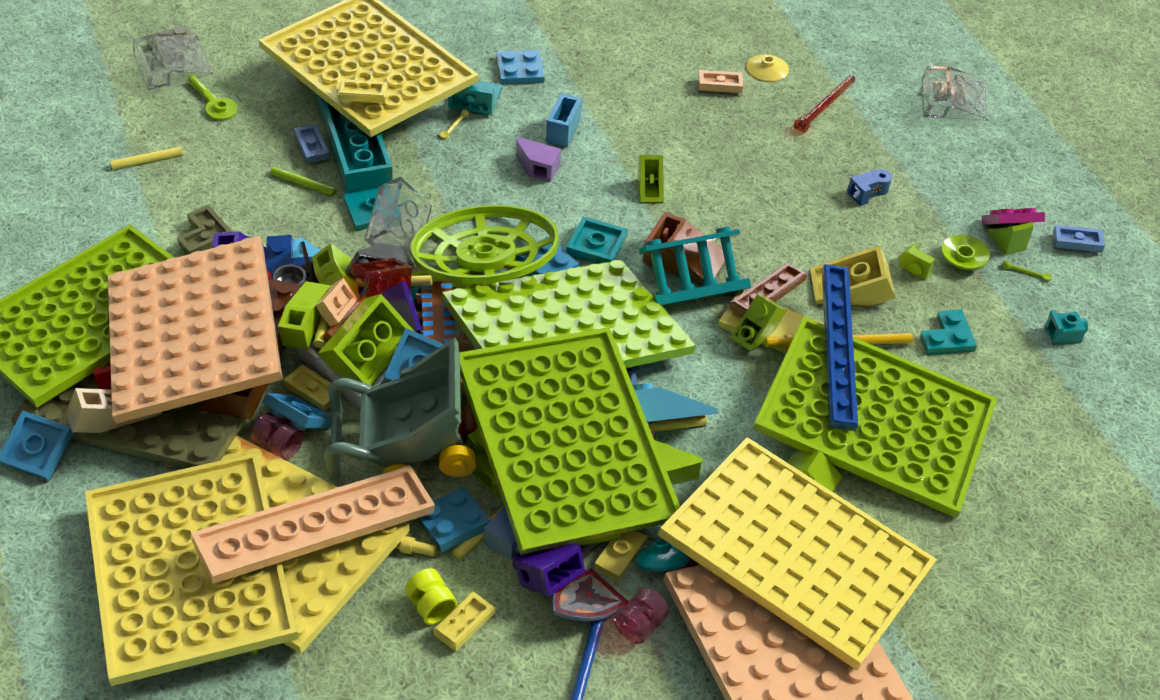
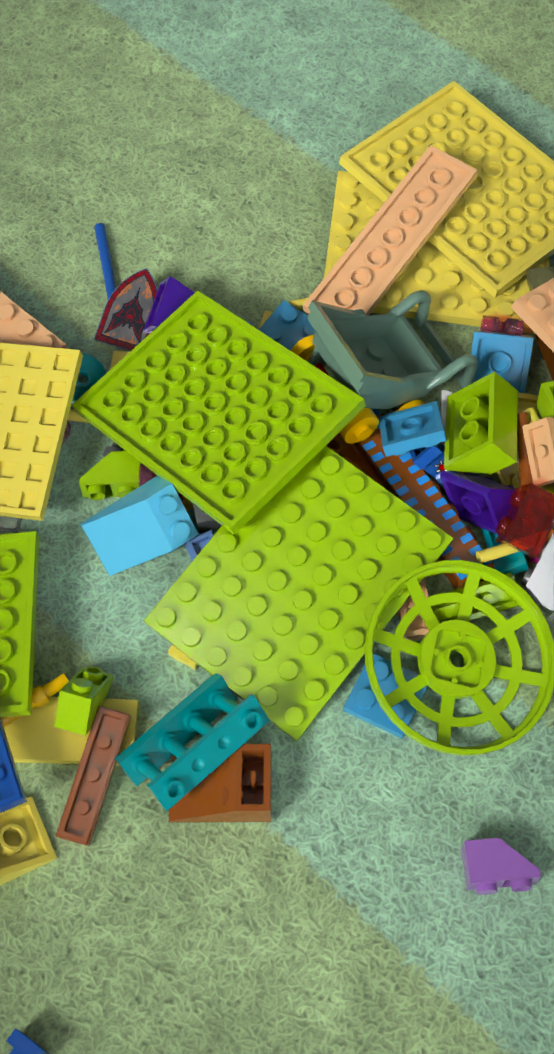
camera: 160 degrees right, 15 degrees up
(430, 596) = (260, 256): neon yellow wheel -> none
(464, 621) = (226, 258): light yellow plate -> none
(564, 120) = (505, 958): dark azure brick -> none
(596, 241) = (341, 756): teal plate -> none
(641, 615) = (75, 316): clear pink wheel -> none
(650, 178) = (326, 902): lime slope -> none

